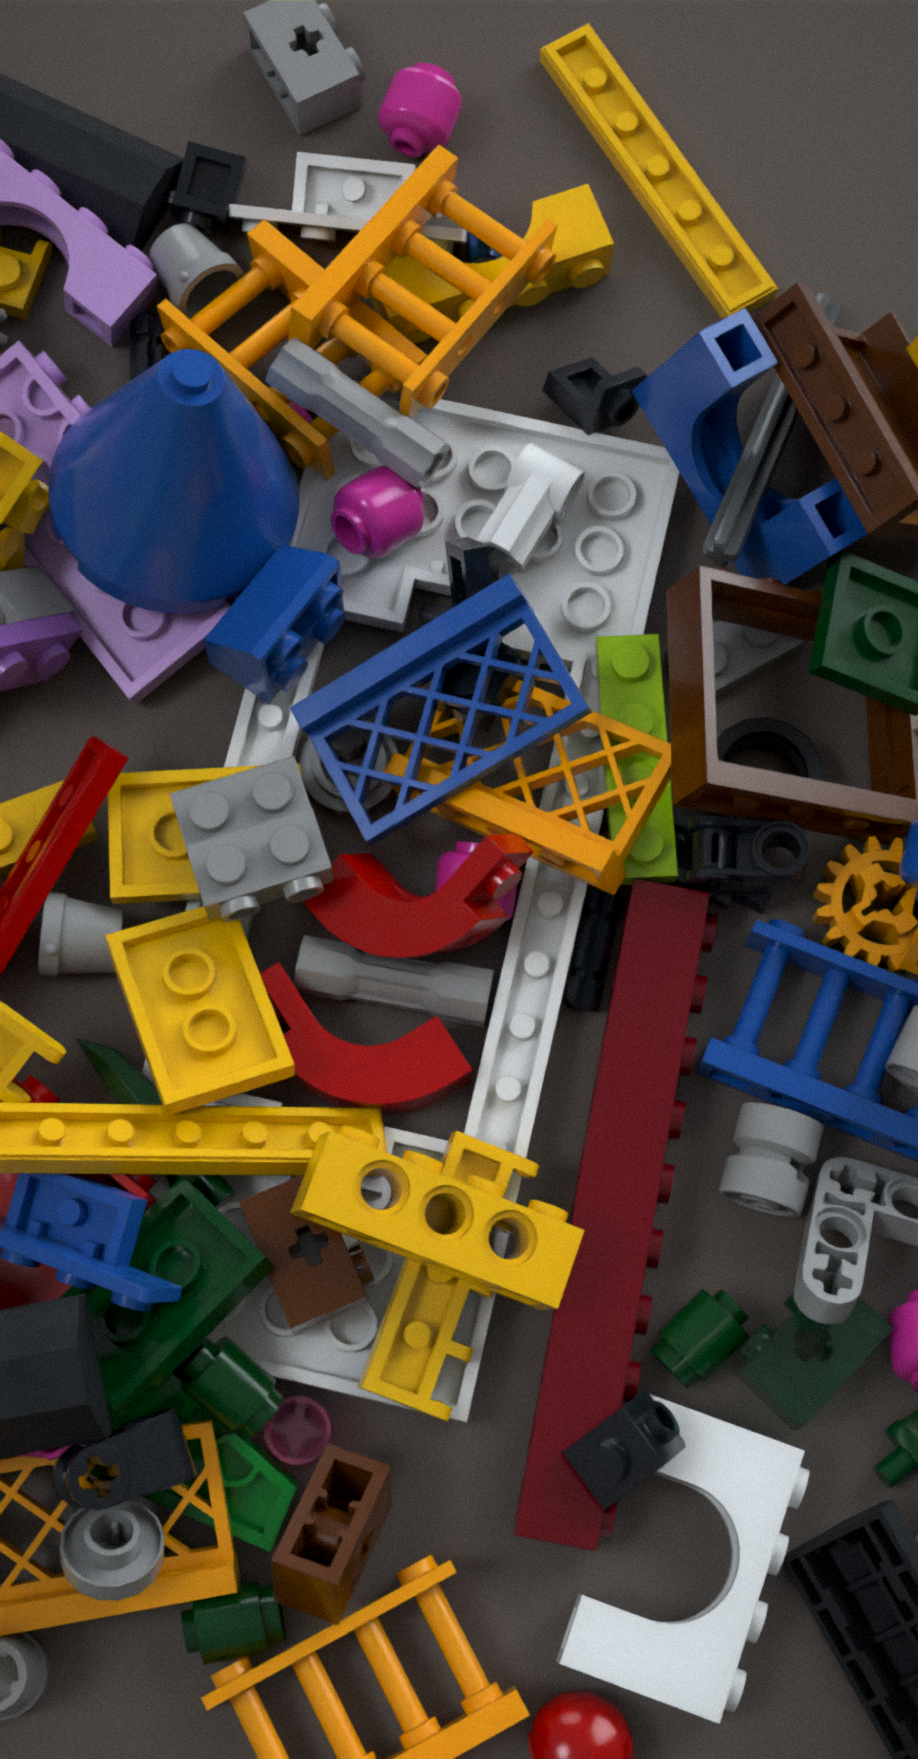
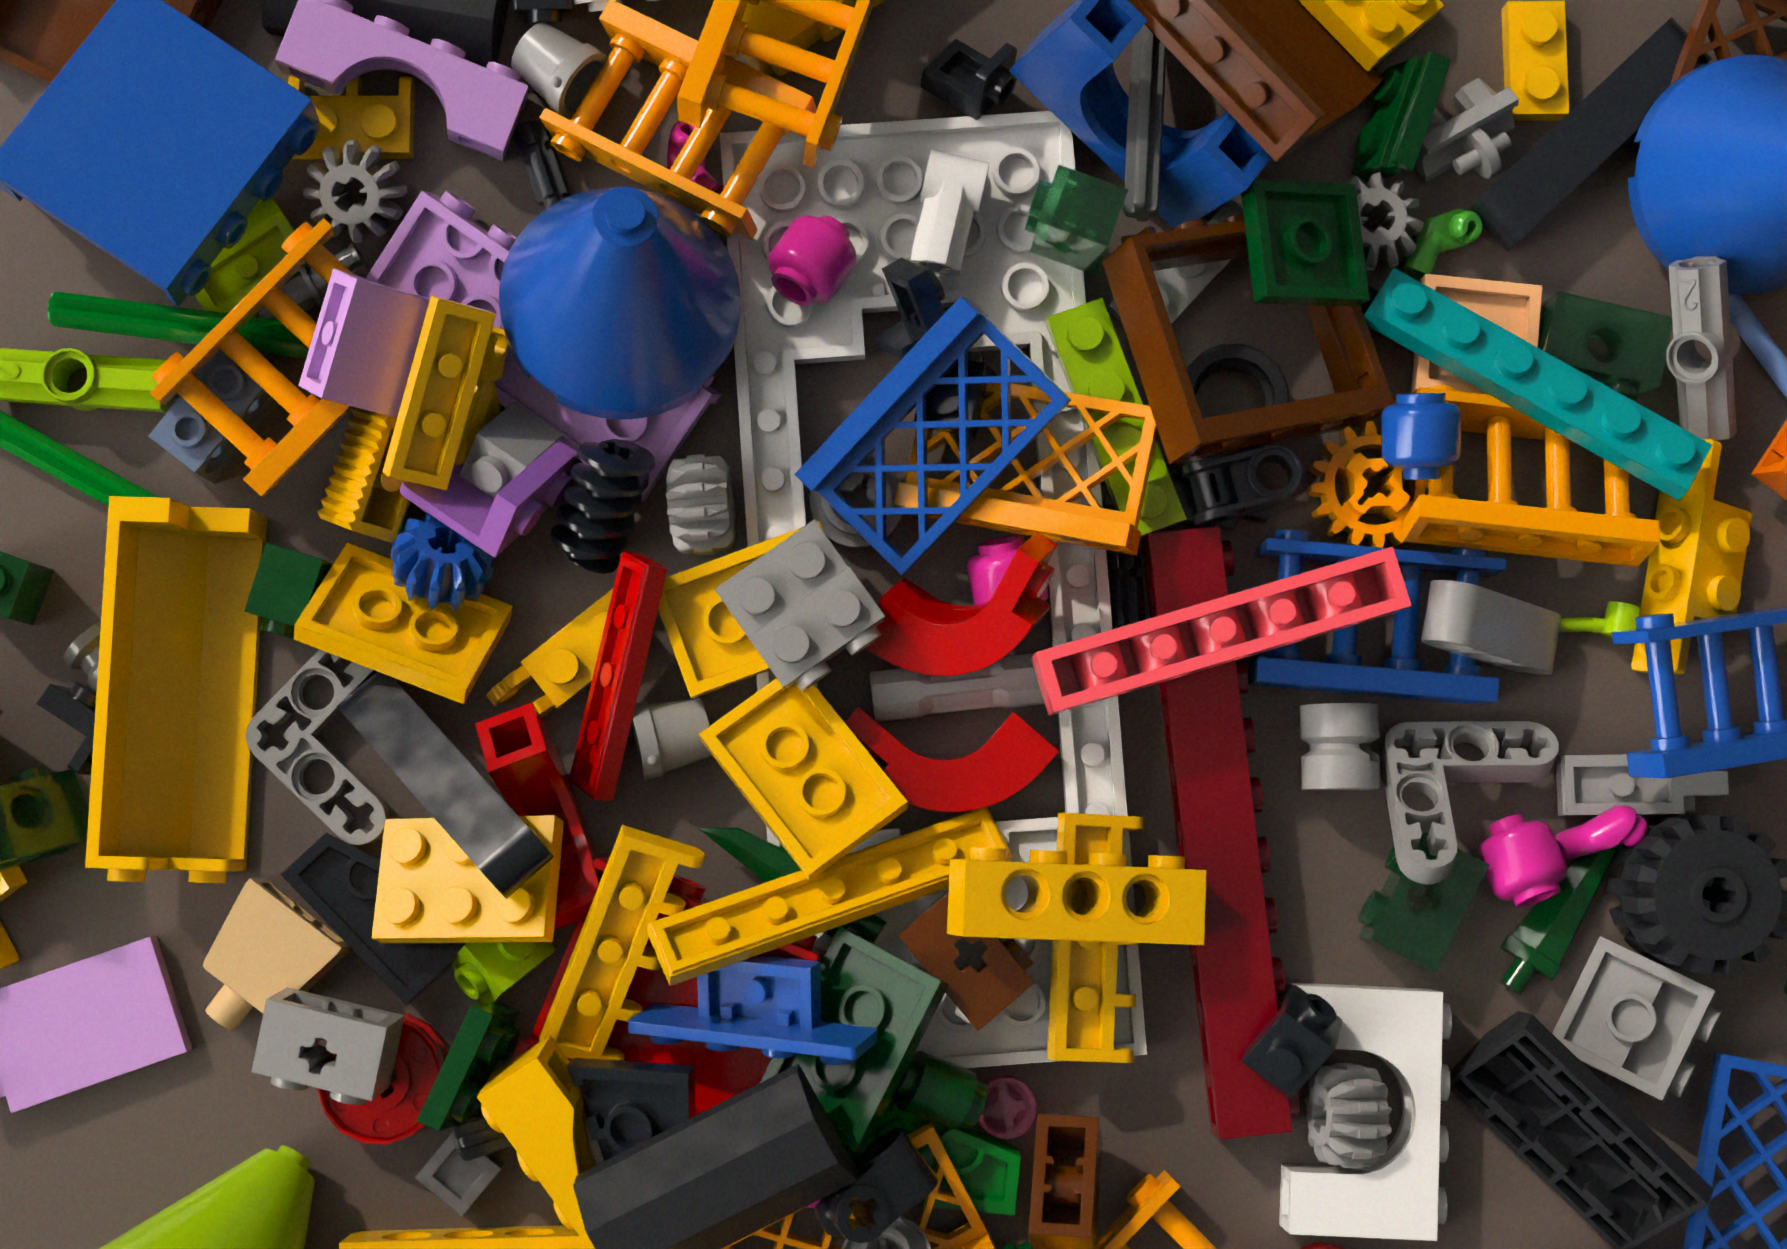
camera: 20 degrees left, 10 degrees up
(90, 684) = (602, 503): none -> black piece
(188, 717) = (701, 504): none -> light grey gear
(279, 621) = (754, 393): blue slope -> none
(323, 389) = (728, 161): light grey axle -> none
(651, 542) = (1074, 218): none -> clear green brick
(662, 1554) = (1347, 1115): none -> light grey gear
(675, 989) = (1220, 631): none -> coral brick
(701, 1337) = (1323, 918): dark green brick -> none

